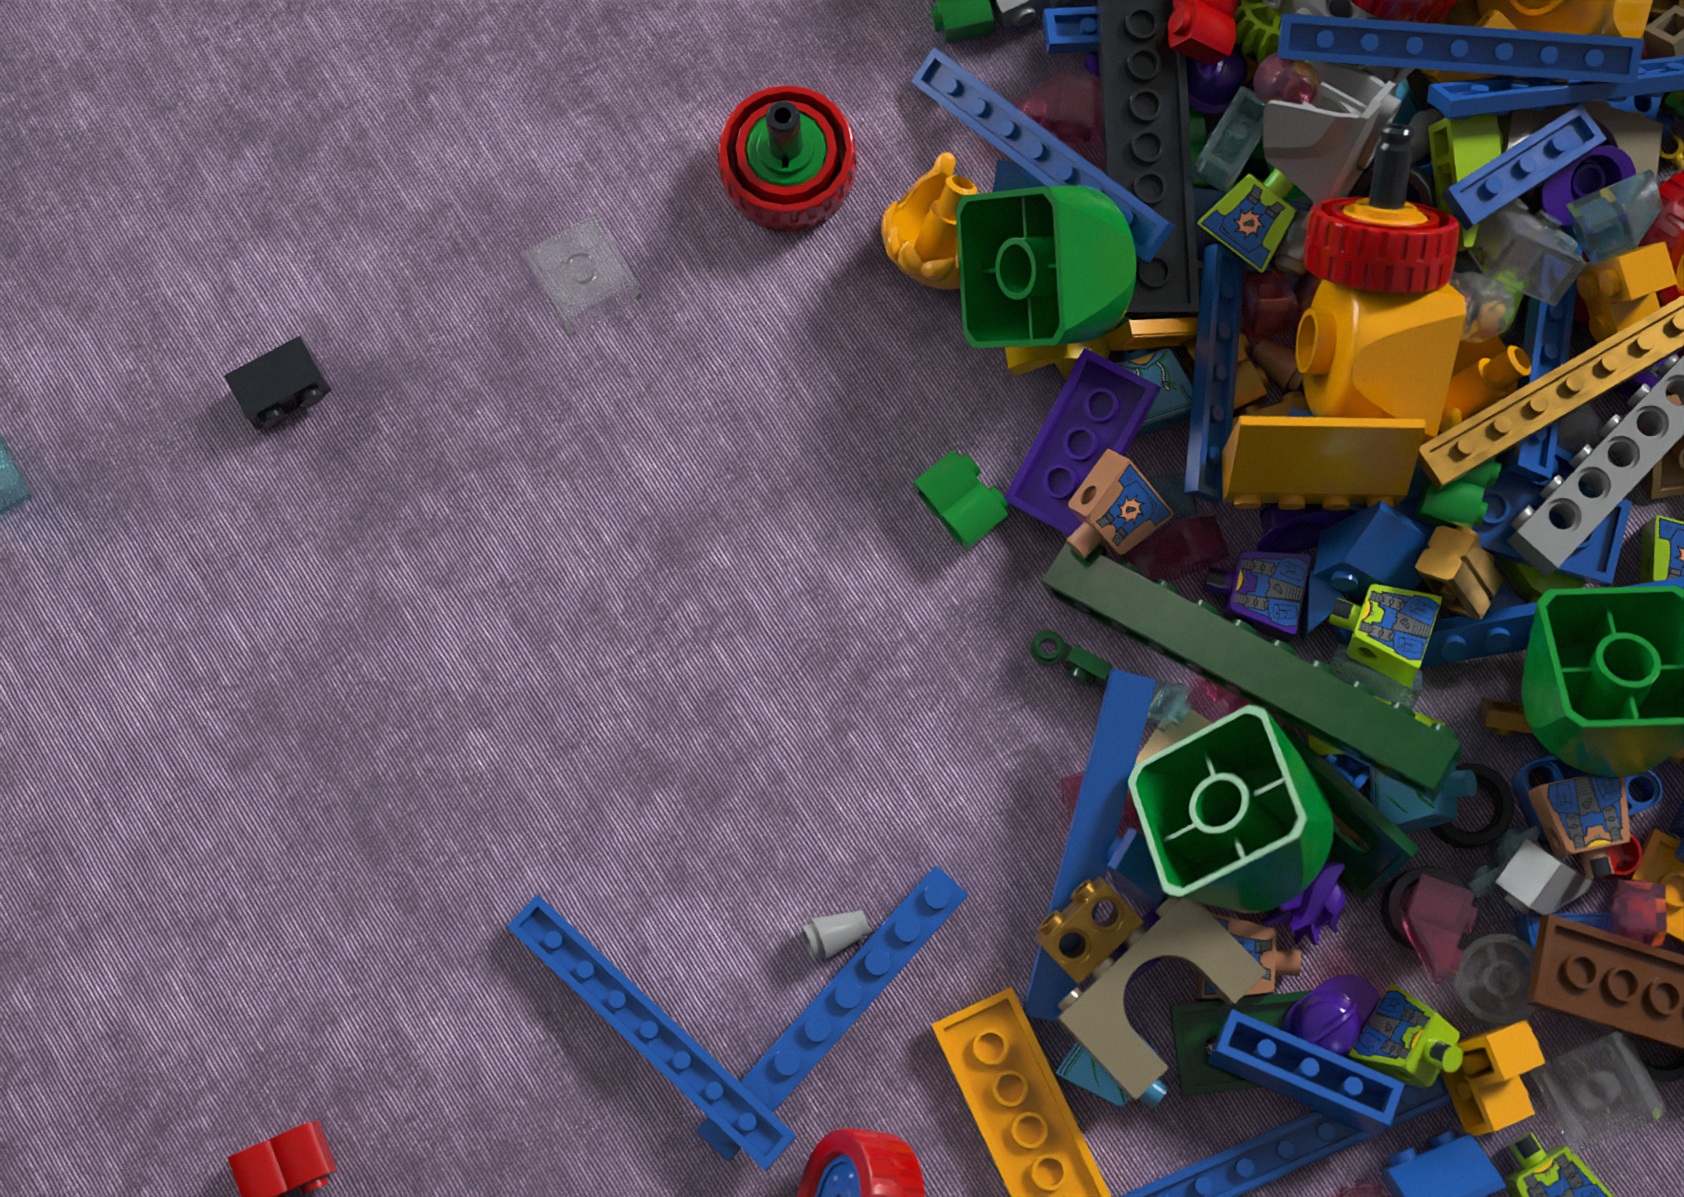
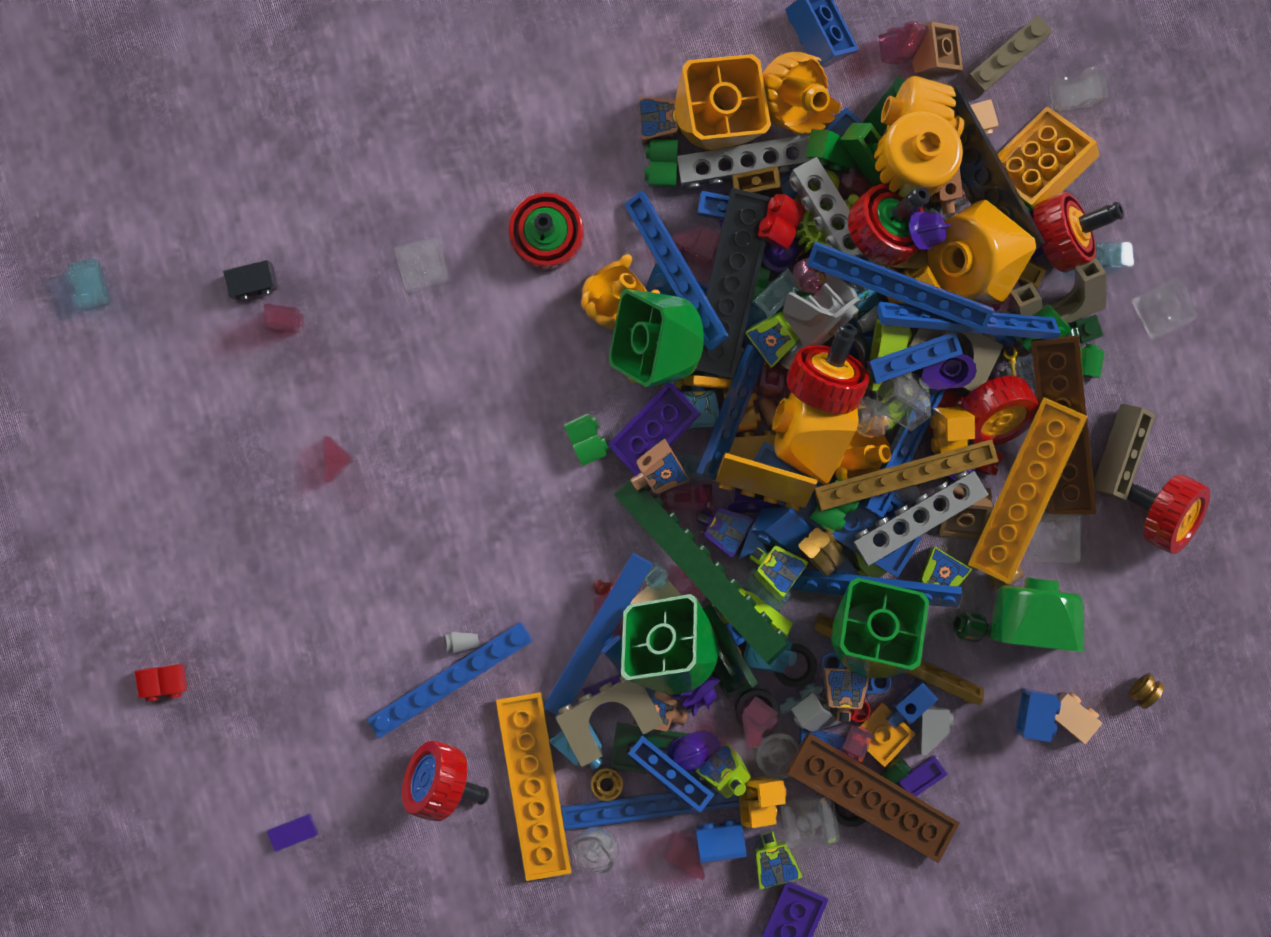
camera: 10 degrees right, 10 degrees up
(352, 431) = (282, 318): none -> clear pink slope
(513, 659) = (335, 459): none -> clear pink slope
(652, 1032) = (357, 666): blue plate -> none
(1073, 759) = (603, 588): none -> clear red arm
(1083, 665) = (622, 543): dark green plate -> none
(1097, 938) = (587, 682): pearl gold brick -> none
(1204, 1117) = (617, 784): none -> pearl gold wheel
(1615, 216) = (956, 394): clear light blue slope -> none

